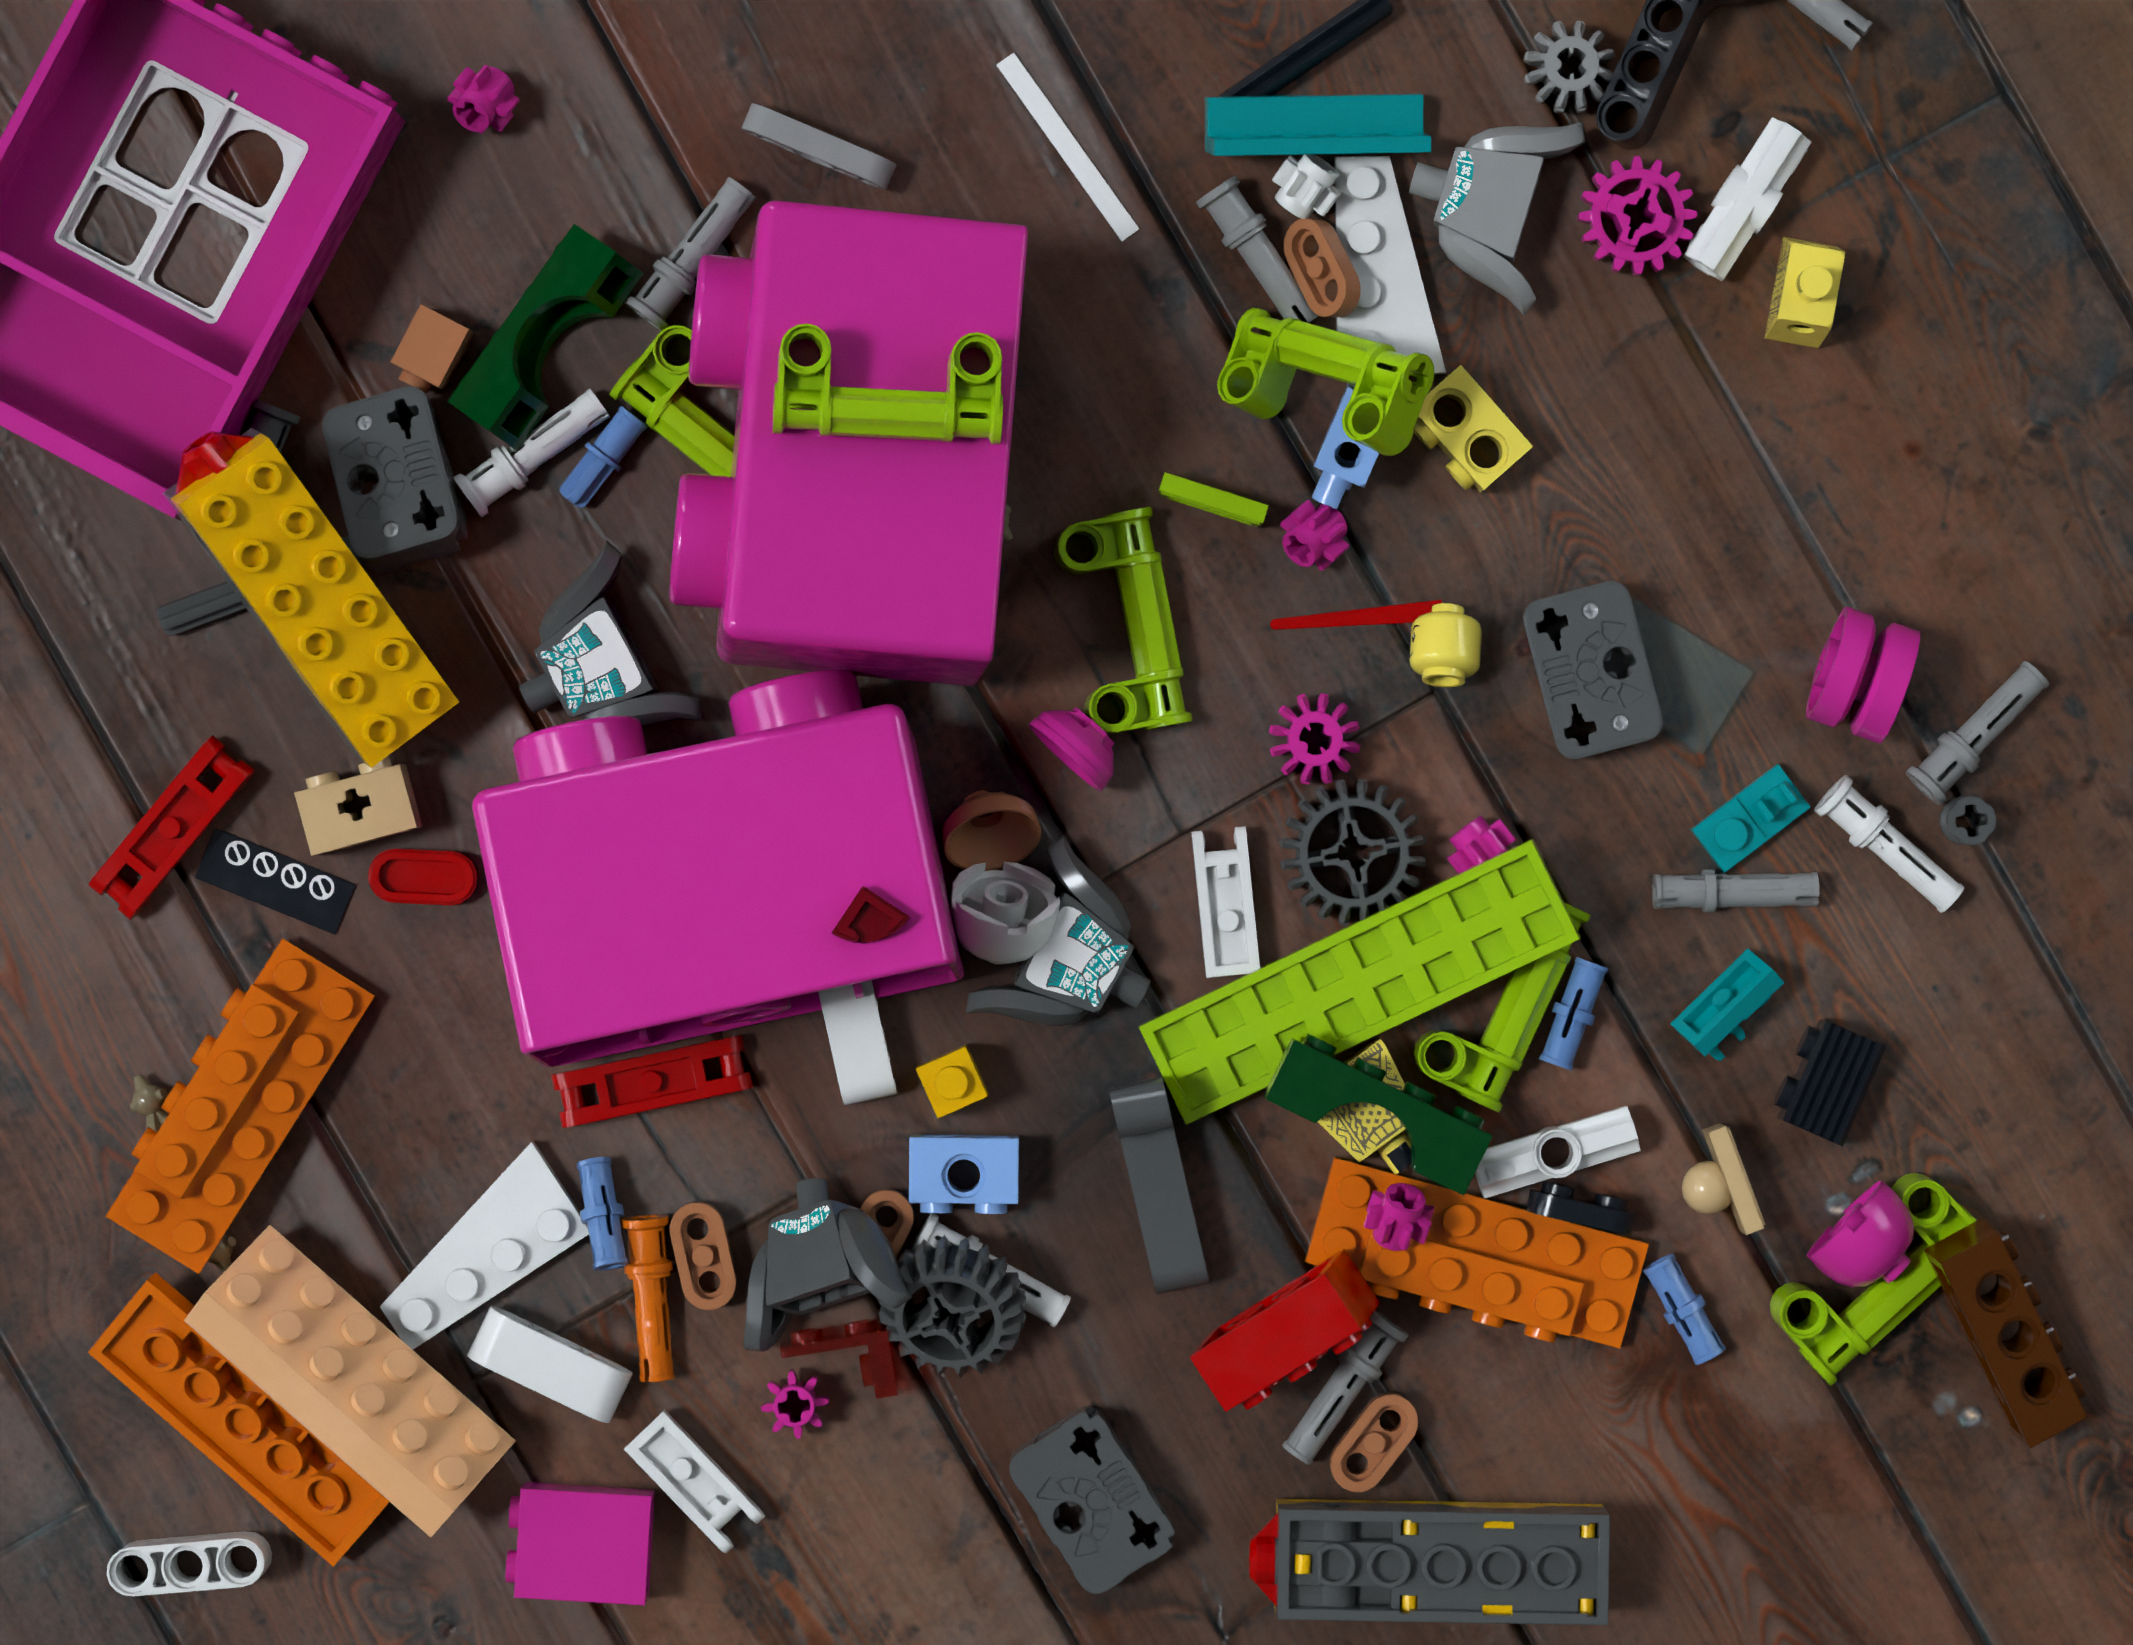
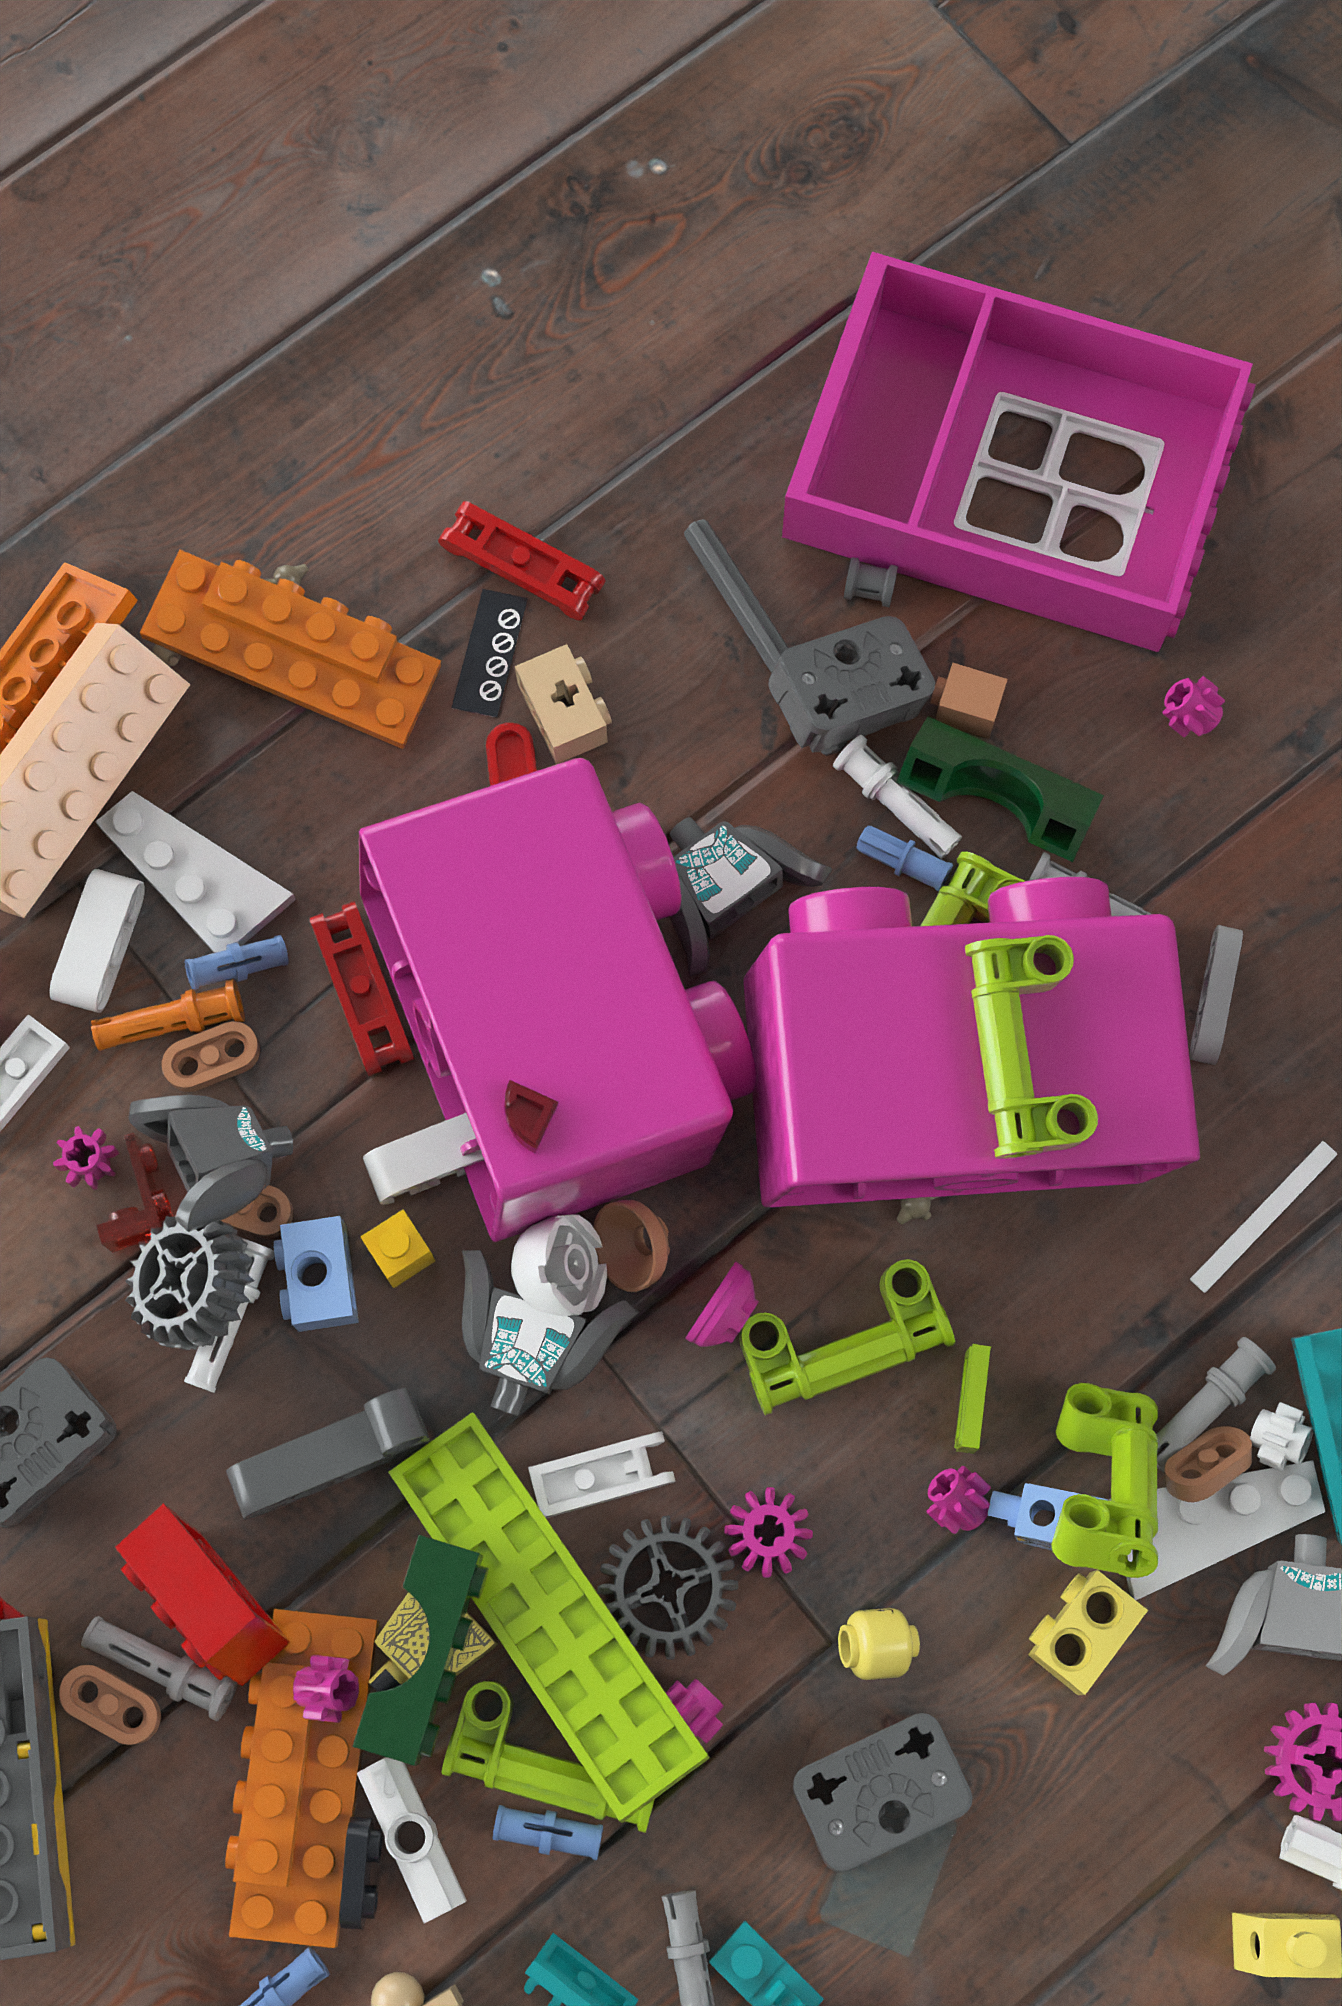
camera: 85 degrees right, 15 degrees down
(307, 592) = (741, 613): yellow piece -> none
(1369, 616) = (894, 1577): red sticker -> none

